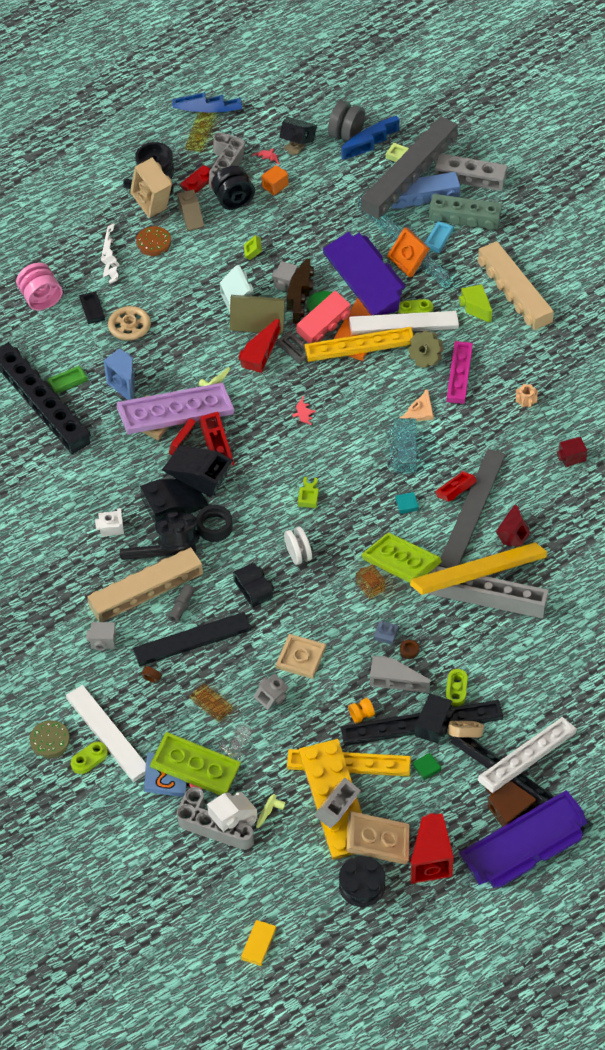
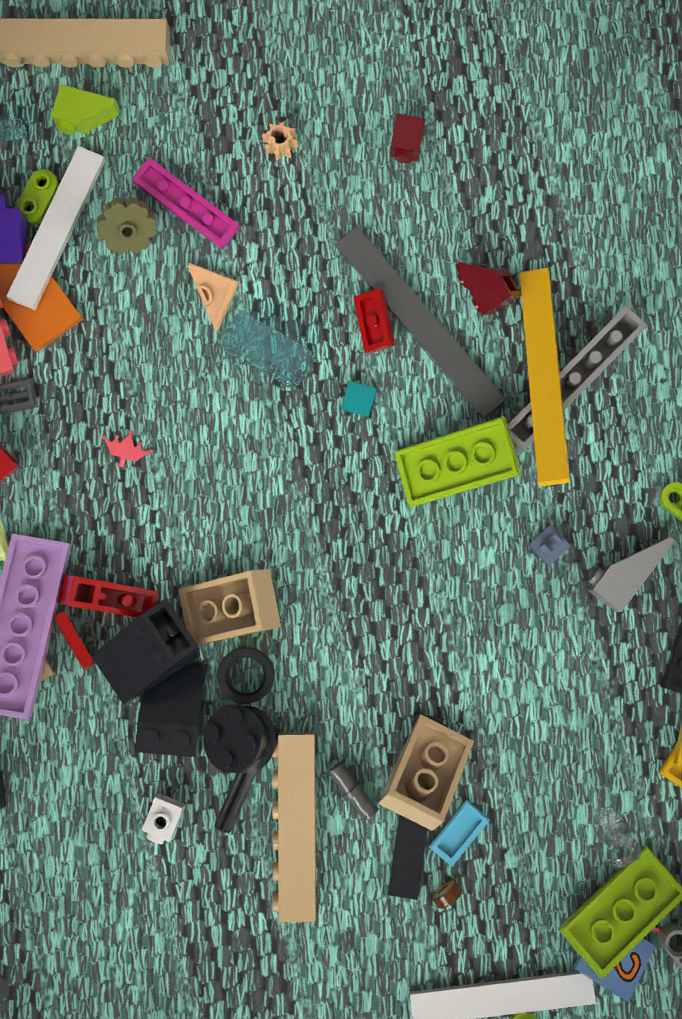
camera: 55 degrees left, 30 degrees up
(102, 635) = (347, 929): light grey brick -> none
(189, 667) = (459, 832): none -> medium azure tile
(211, 702) = (530, 834): clear orange tile -> none
(213, 626) = (426, 773): none -> tan slope
(248, 498) = (230, 606): none -> tan slope
(253, 584) = (379, 678): black brick -> none
(271, 691) = (568, 750): light grey brick -> none
(298, 545) = (355, 586): white head -> none
(301, 656) = (523, 676): tan tile -> none
(308, 494) = (273, 523): lime plate -> none
(358, 344) = (58, 309): yellow tile -> none
(361, 710) = (656, 640): light orange wheel -> none
(370, 581) = (462, 521): clear orange brick -> none
(409, 649) = (591, 530): reddish brown tile -> none

